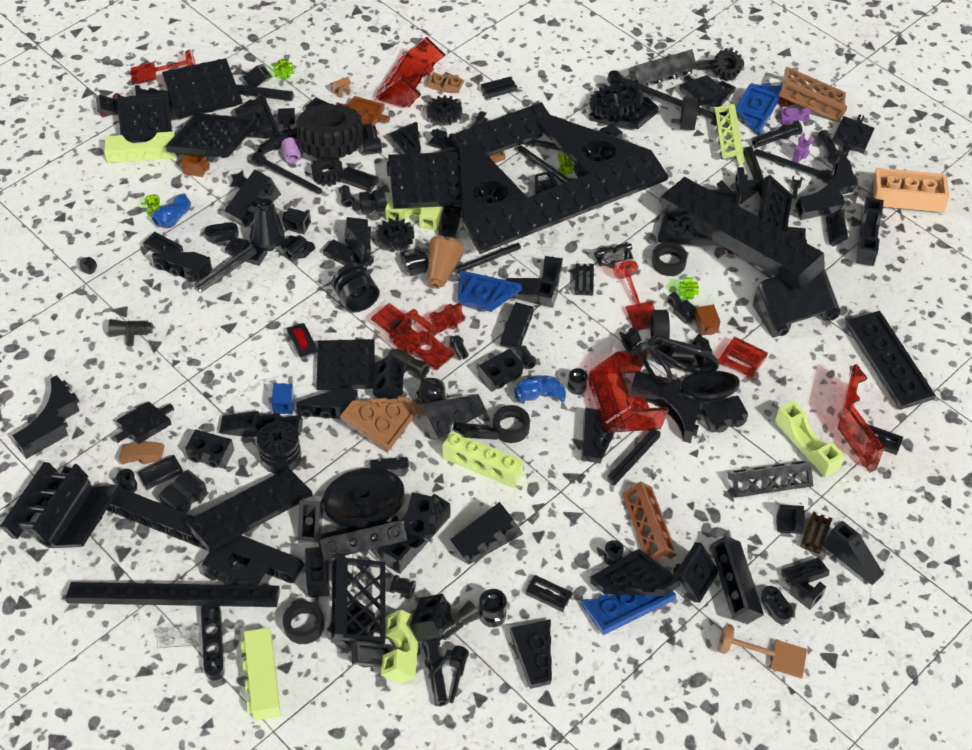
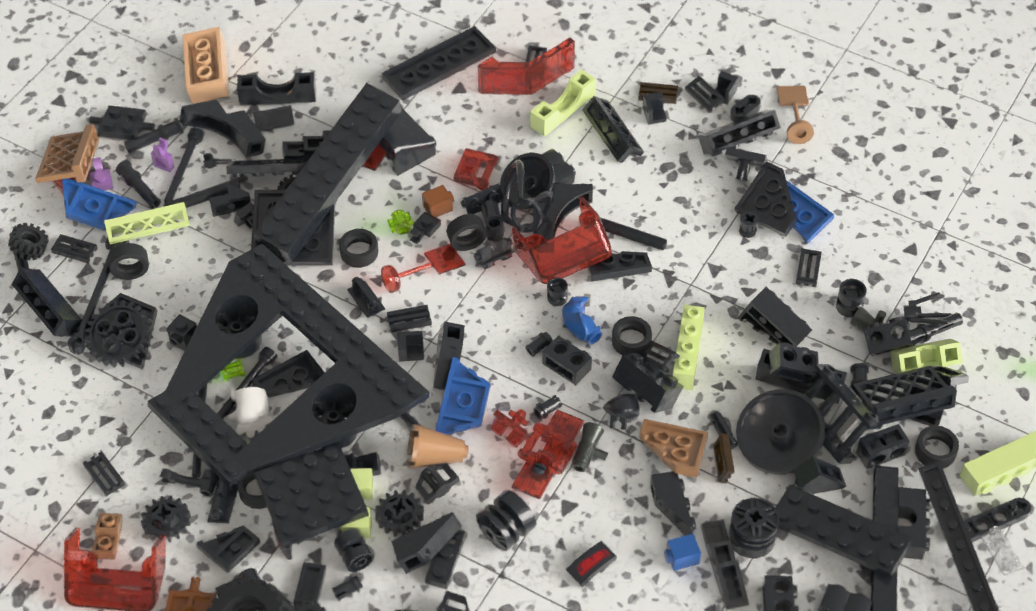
camera: 105 degrees left, 0 degrees up
(345, 364) = (607, 510): black plate -> none
(357, 451) = (723, 458): none -> dark brown tile
(388, 378) = (620, 449): black brick -> none
(517, 326) = (500, 360): black beam -> none
(519, 163) = (251, 410): none -> white piece
(534, 651) = (875, 264): black wing -> none
(655, 519) = (696, 202): dark orange fence -> none
(703, 89) = (76, 261): black plate -> none
(852, 550) = (672, 63): black slope -> none

